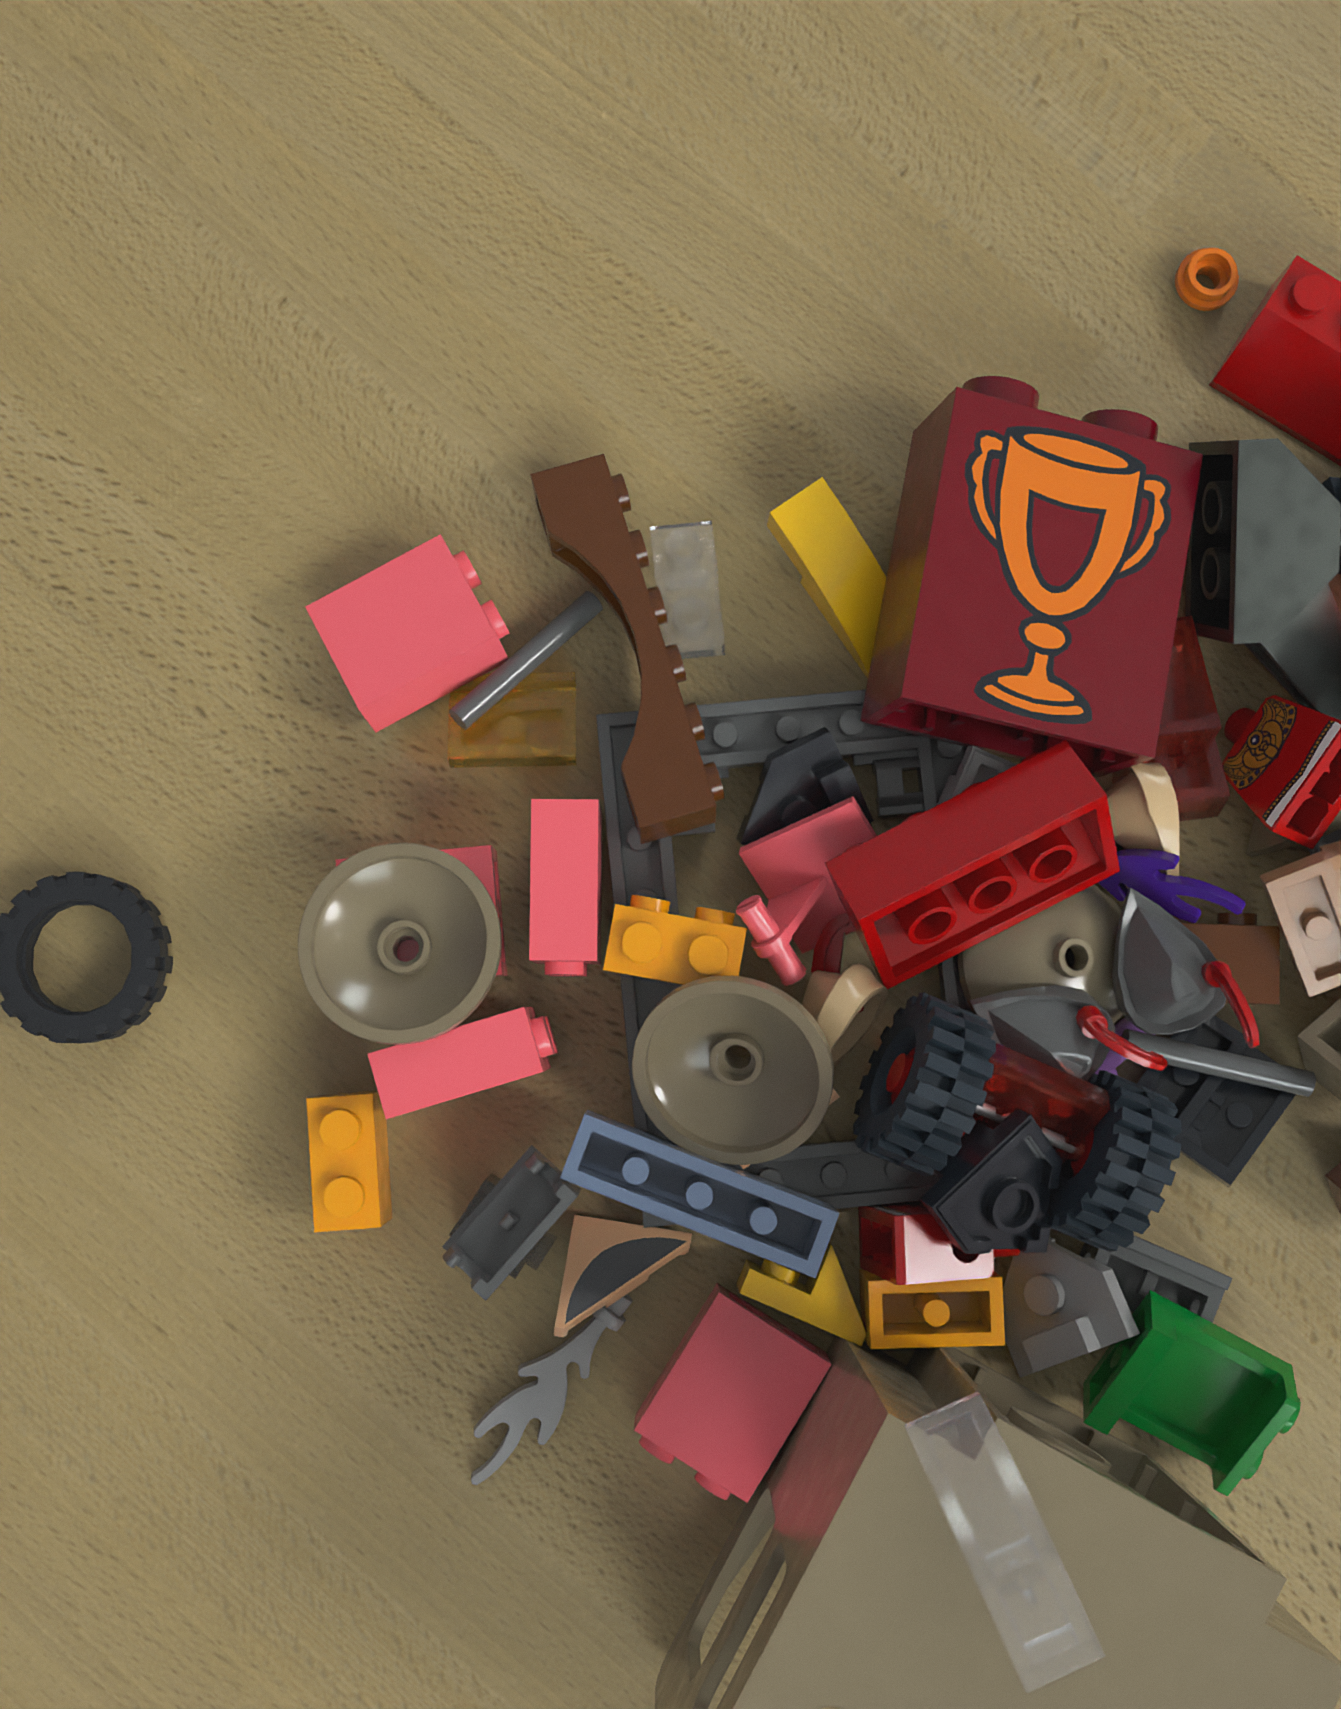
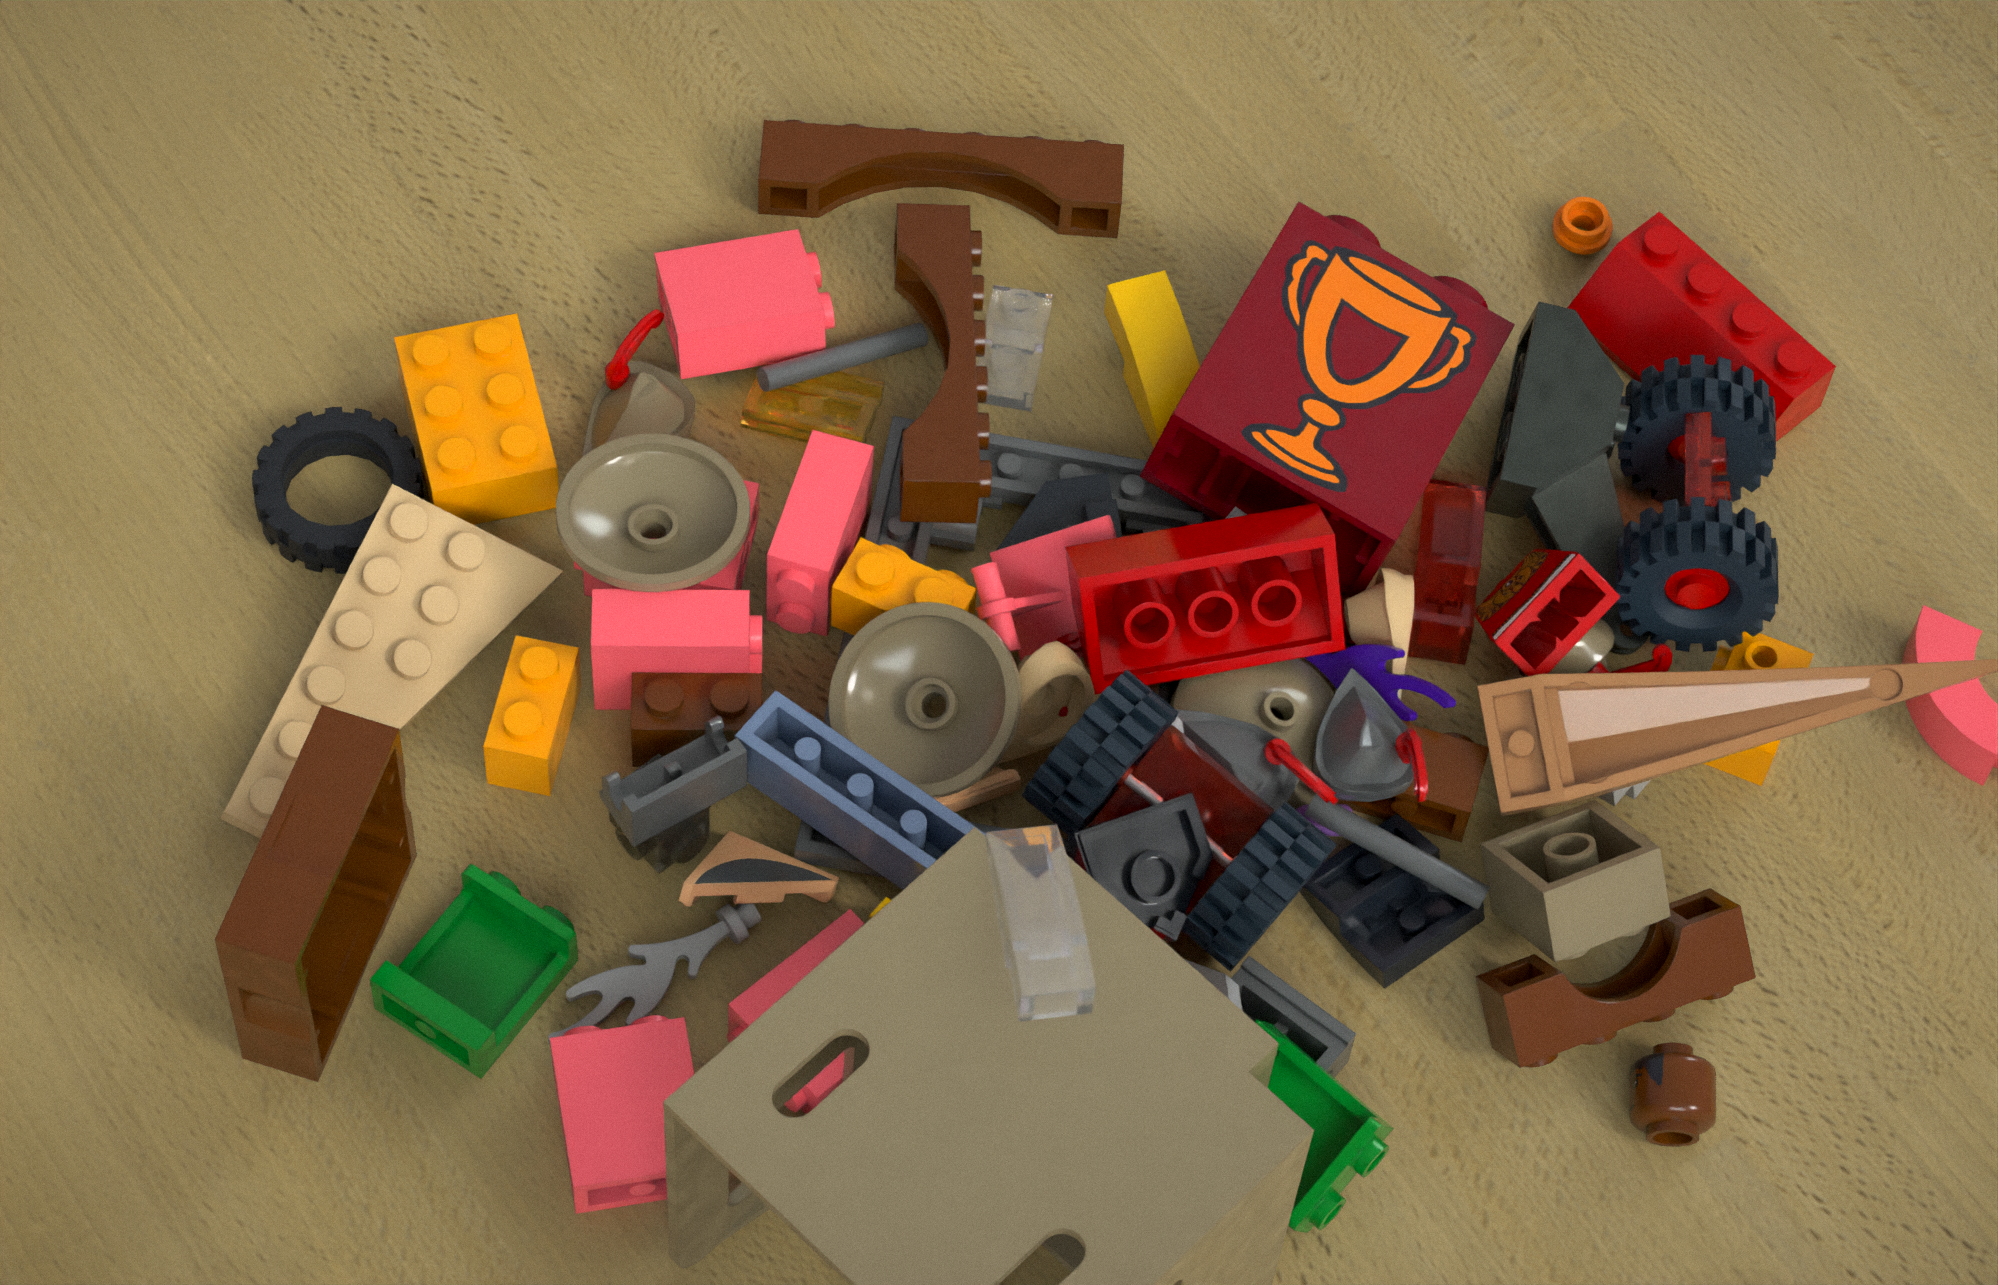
camera: 15 degrees right, 25 degrees down
(189, 846) = (478, 420): none -> light orange brick
(189, 1103) = (397, 633): none -> tan wing
(201, 1496) = (317, 893): none -> reddish brown tile
(342, 781) = (638, 396): none -> dark tan piece
(382, 1445) = (478, 971): none -> green panel
(507, 1117) = (673, 708): none -> reddish brown brick
(572, 1551) = (613, 1108): none -> coral brick
(686, 387) = (823, 166): none -> reddish brown arch

